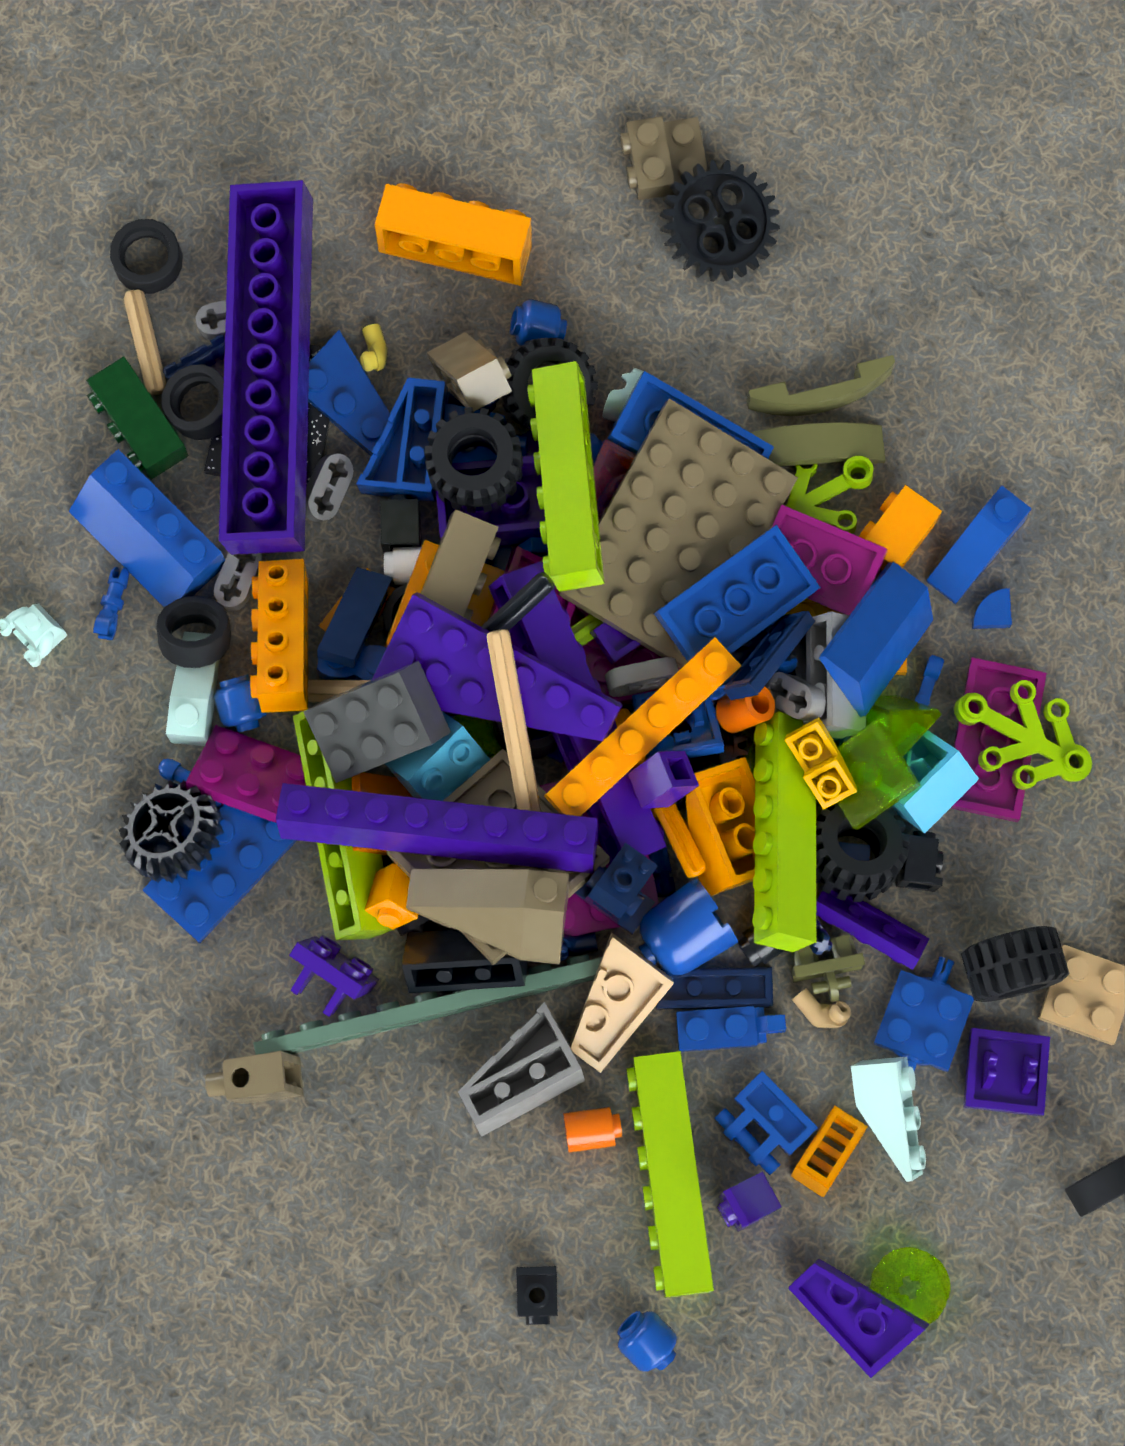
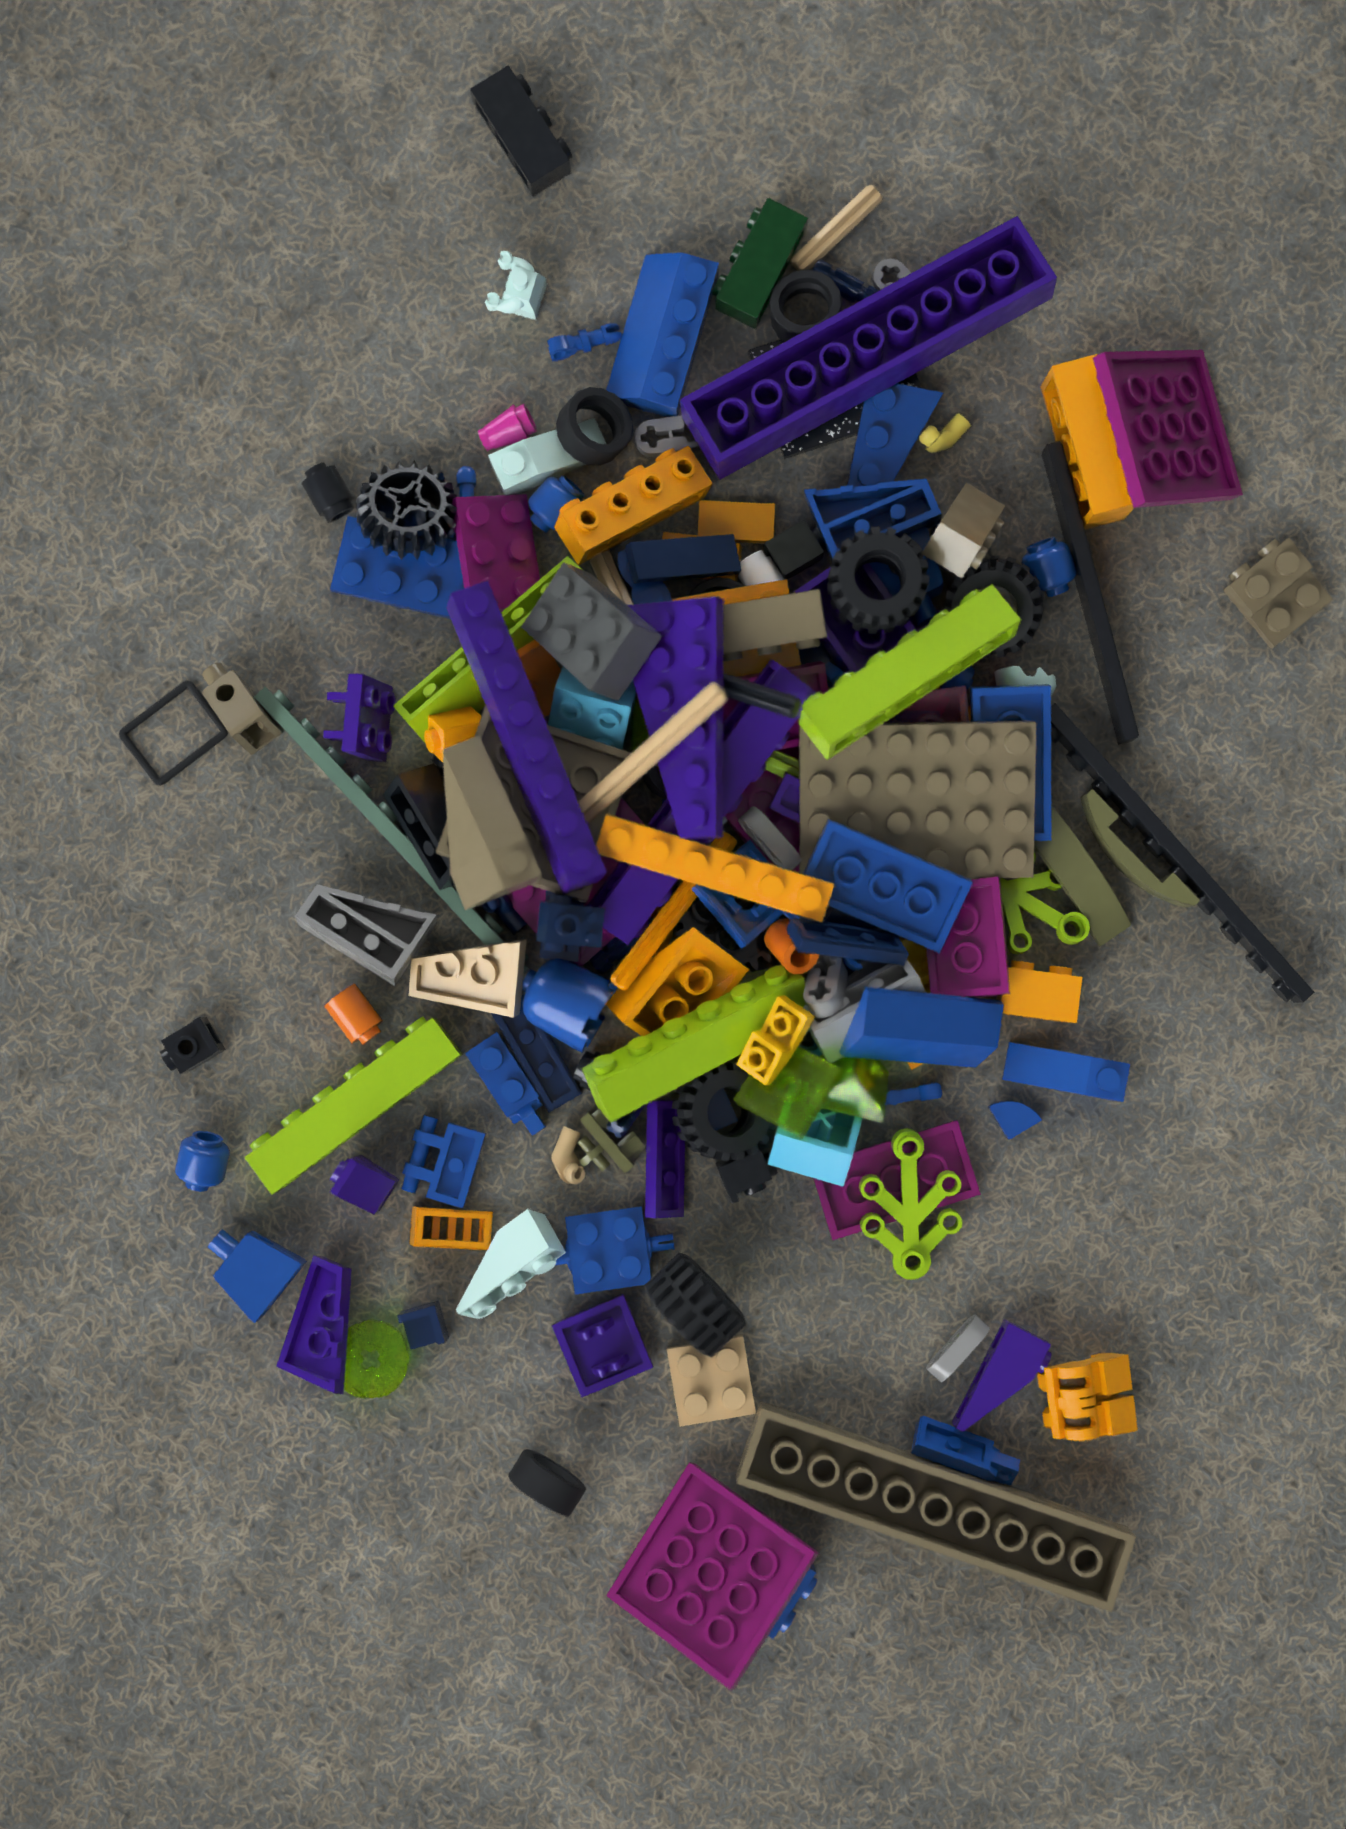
camera: 60 degrees right, 10 degrees up
(111, 895) = (328, 492): none -> black brick
(146, 229) = (922, 154): black tyre -> none
(149, 708) = (508, 428): none -> dark pink cone
(211, 1160) = (153, 709): none -> black piece
(333, 491) = (794, 475): light grey beam -> none
(351, 550) = (744, 519): none -> light orange tile
(479, 164) = (1167, 427): none -> magenta plate
(581, 305) = (1090, 593): none -> black tile
(663, 779) = (679, 910): dark purple brick -> none
(689, 232) = (1270, 695): black gear -> none
(772, 1348) = (254, 1270): none -> blue torso
(826, 360) = (1163, 843): none -> black plate
(904, 1221) = (424, 1325): none -> dark blue panel

